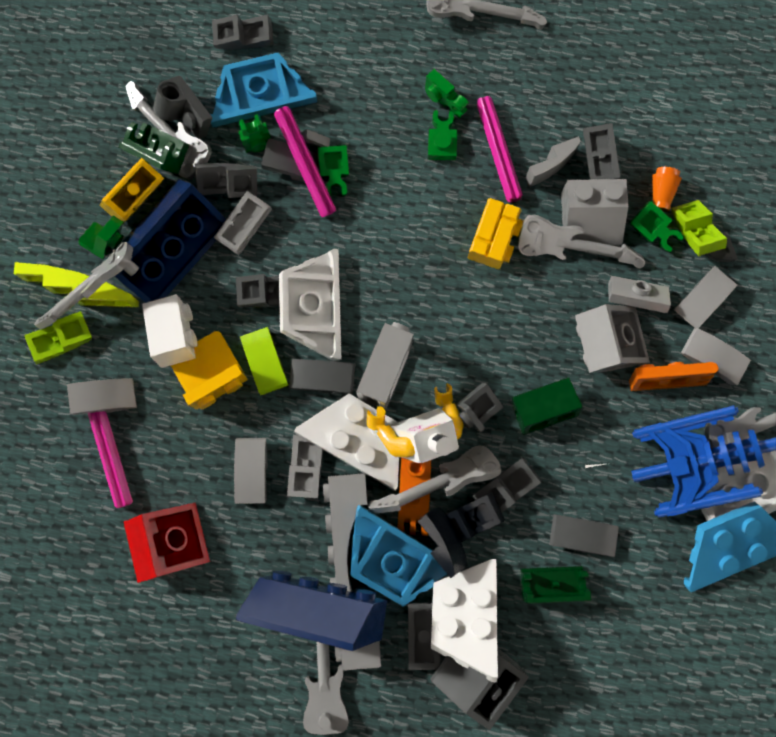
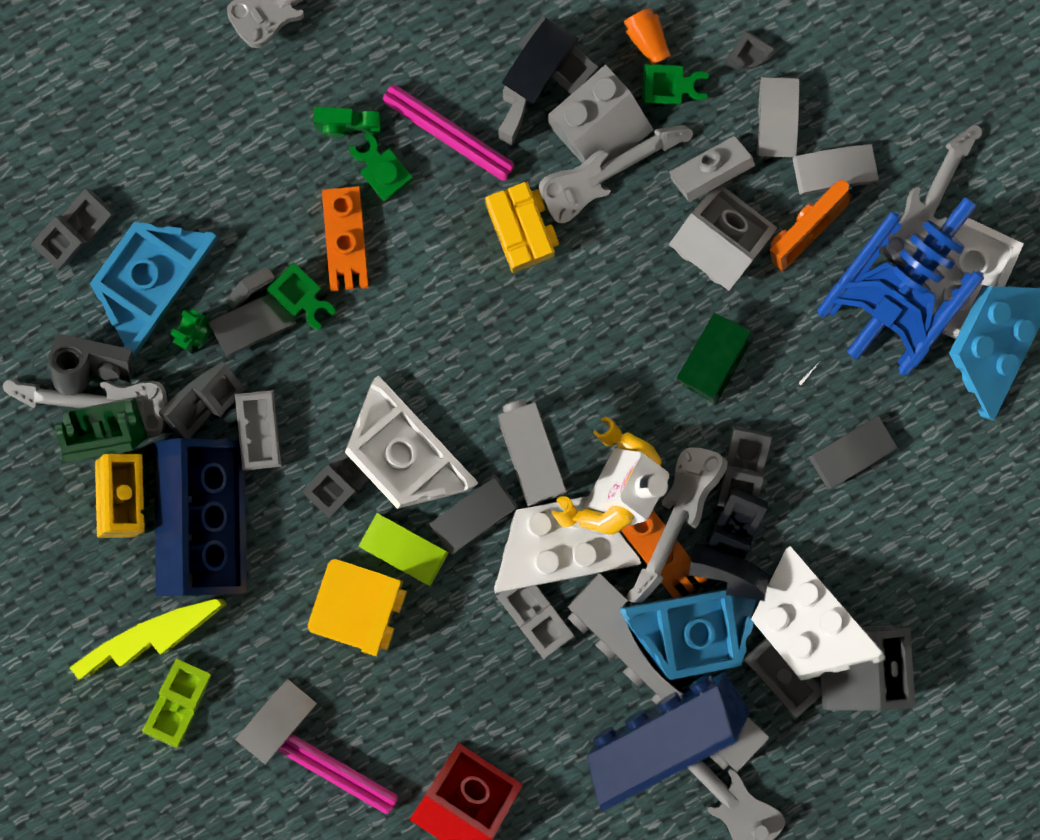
camera: 45 degrees left, 5 degrees up
(102, 239) = (130, 570): green bracket -> none
(114, 264) = (181, 587): light grey piece -> none
(169, 331) = (286, 601): white brick -> none
(250, 470) = (485, 665): light grey slope -> none
(304, 161) = (267, 315): dark pink axle -> none
(388, 158) = (345, 236): none -> orange hinge
(478, 407) = (651, 415): dark grey bracket -> none
(554, 584) = (863, 522): dark green hinge -> none
(589, 144) = (540, 60): none -> black slope
(697, 228) = (713, 51): lime slope -> none

